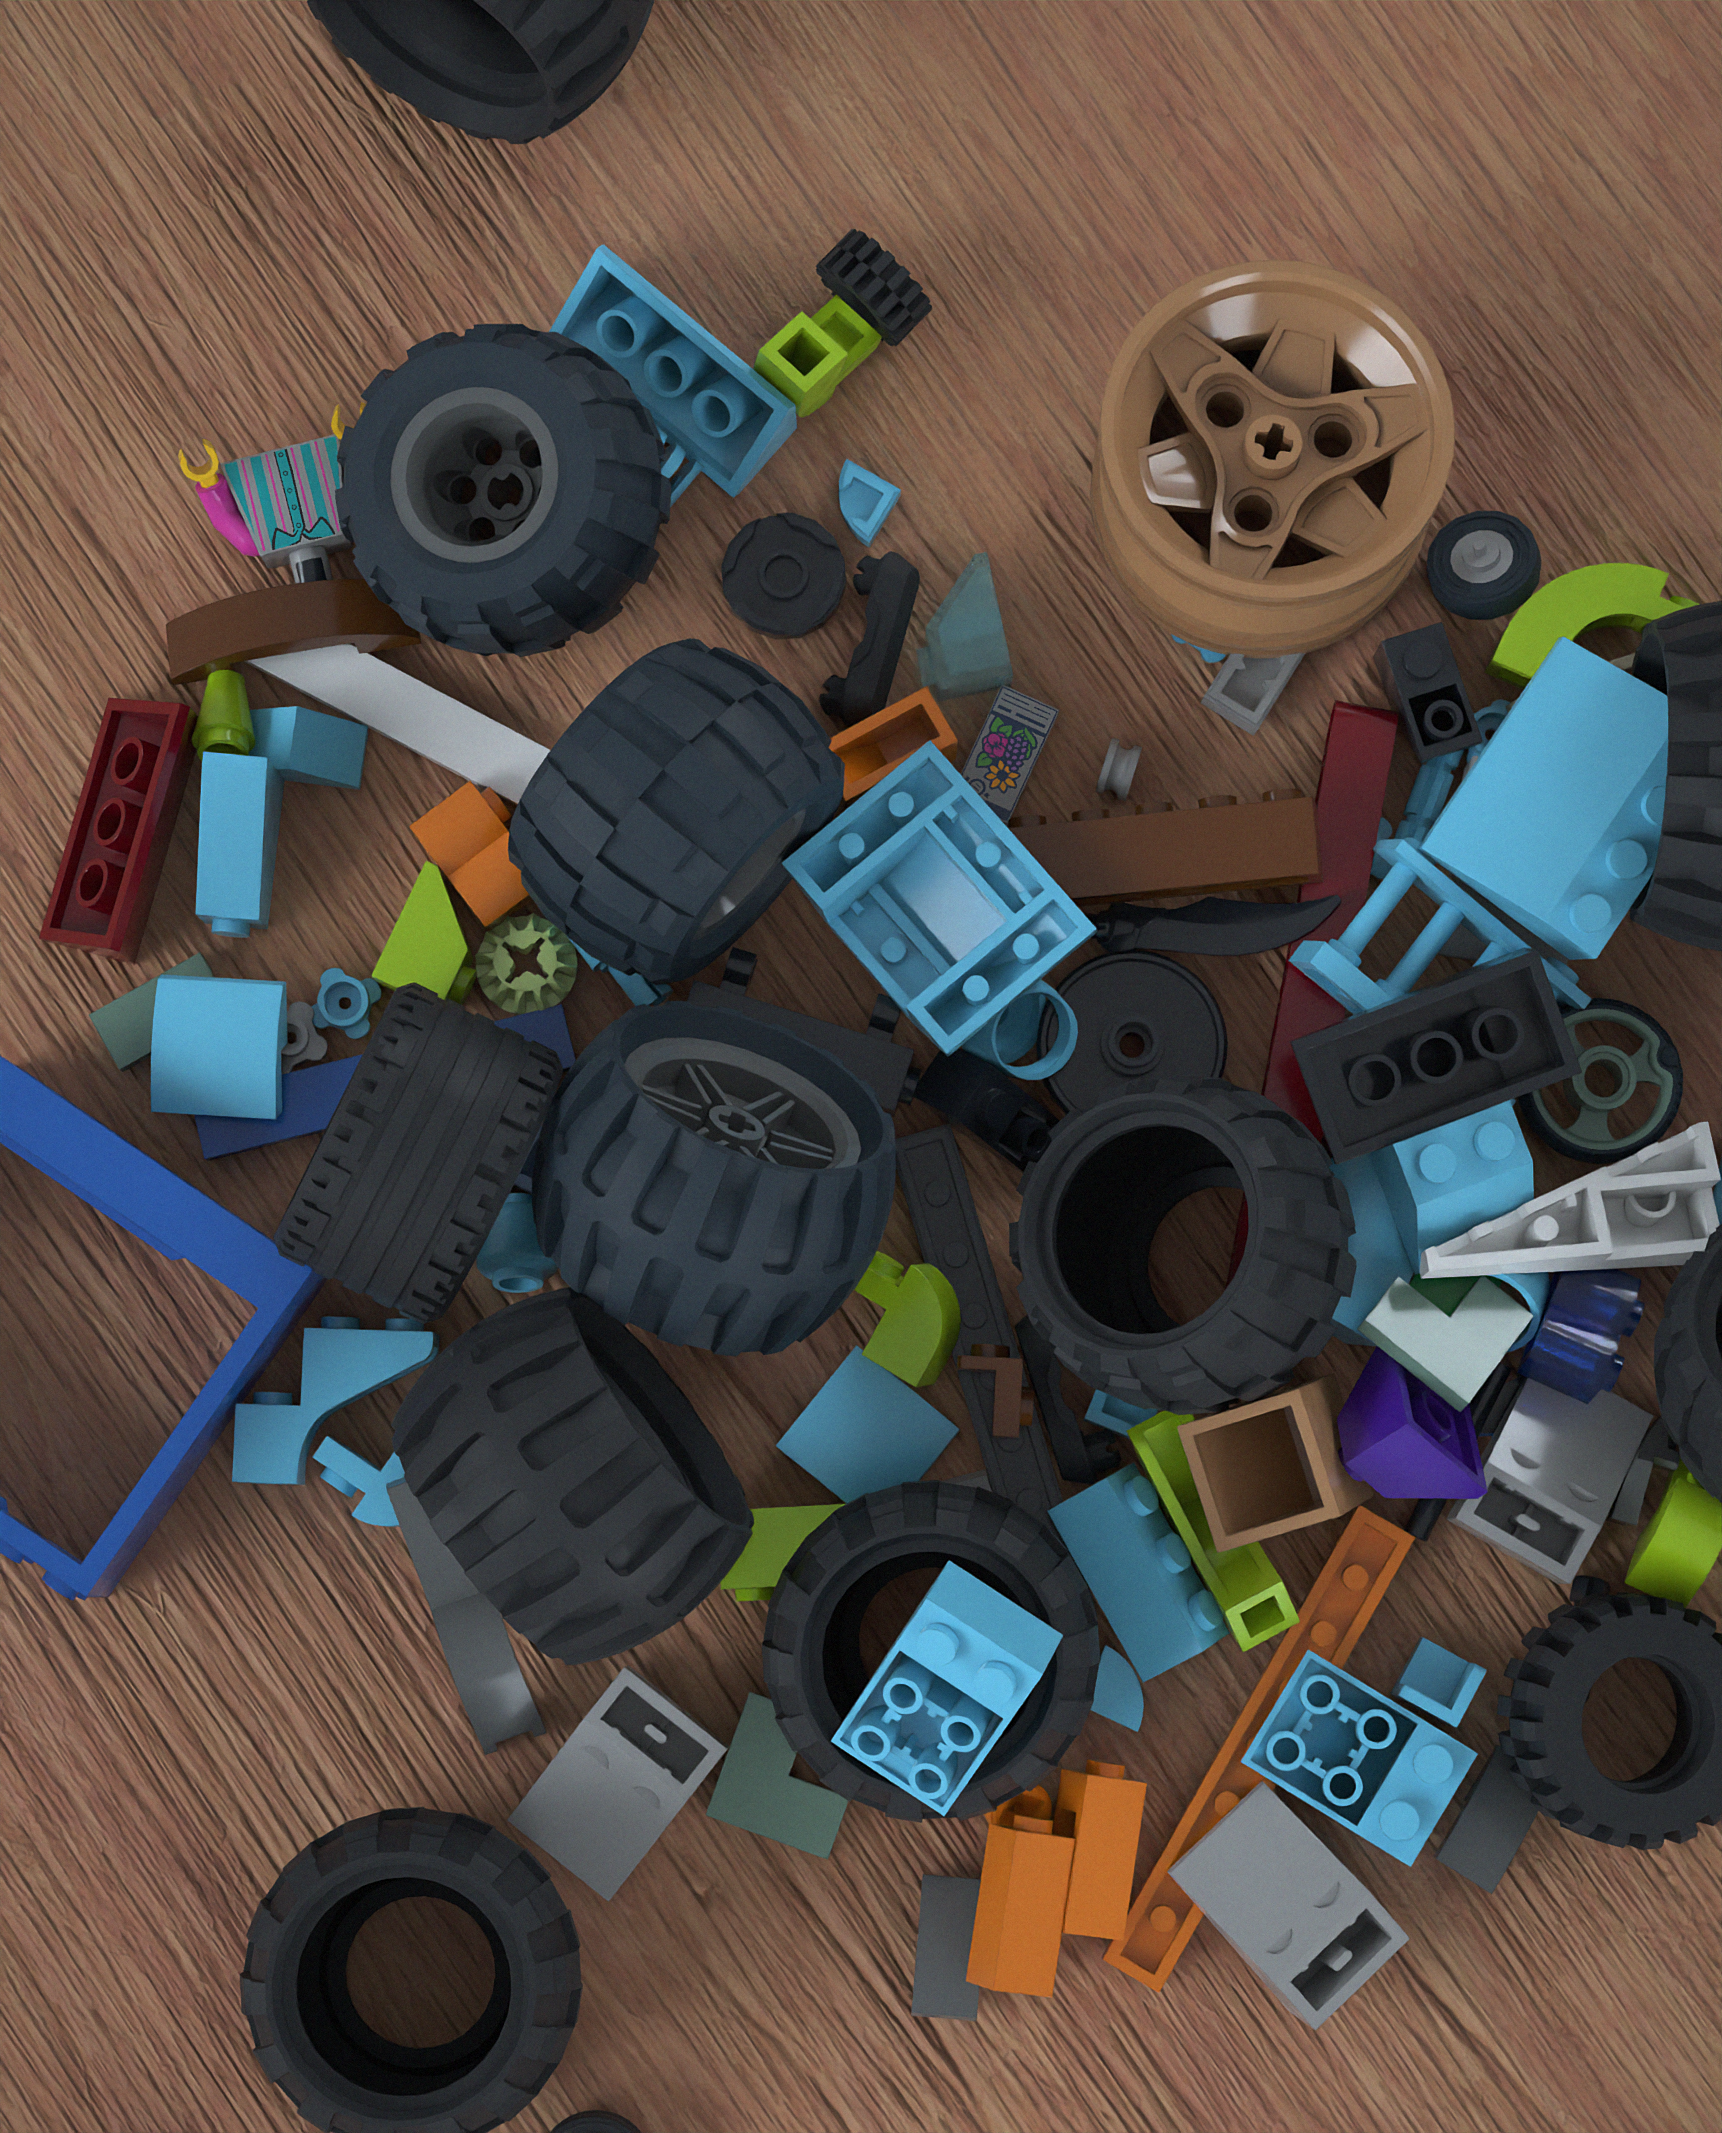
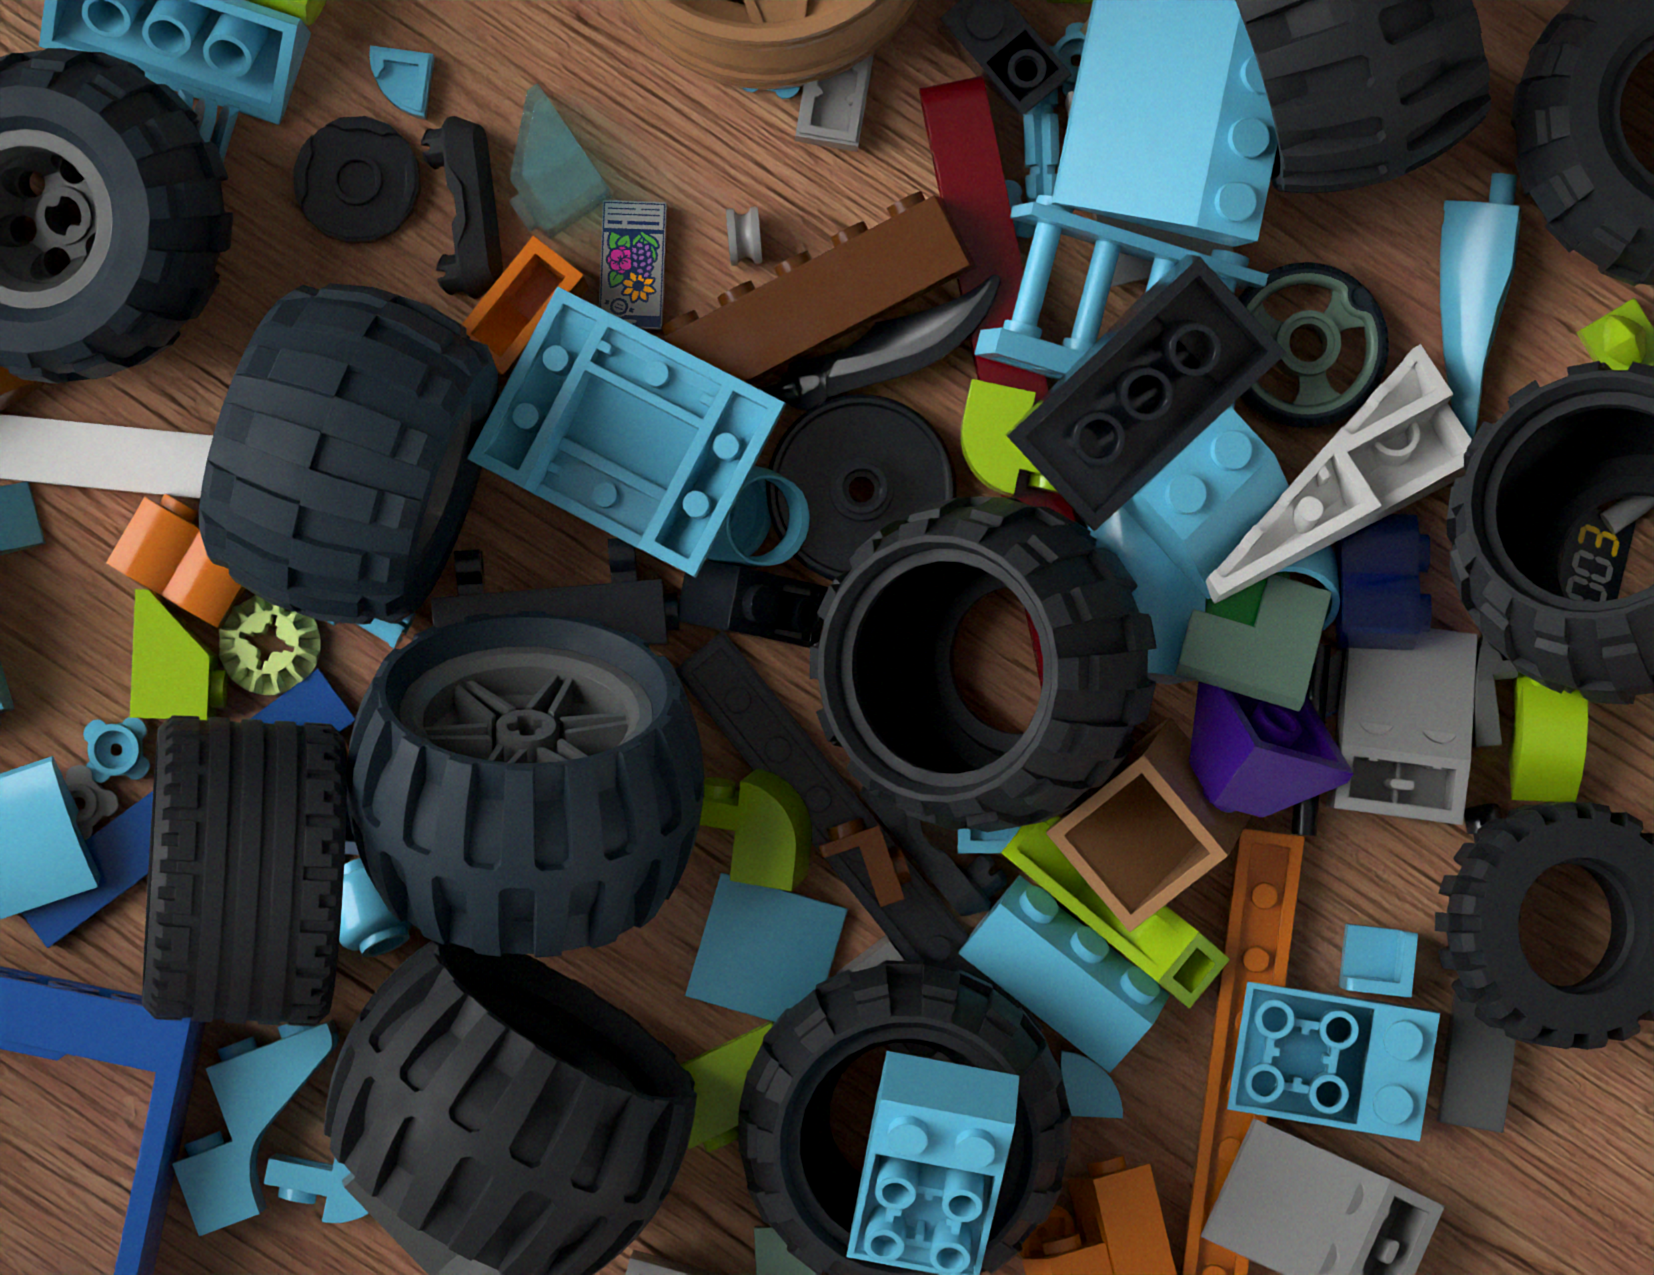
camera: 25 degrees left, 5 degrees up
(1266, 1048) = (992, 457): none -> lime brick

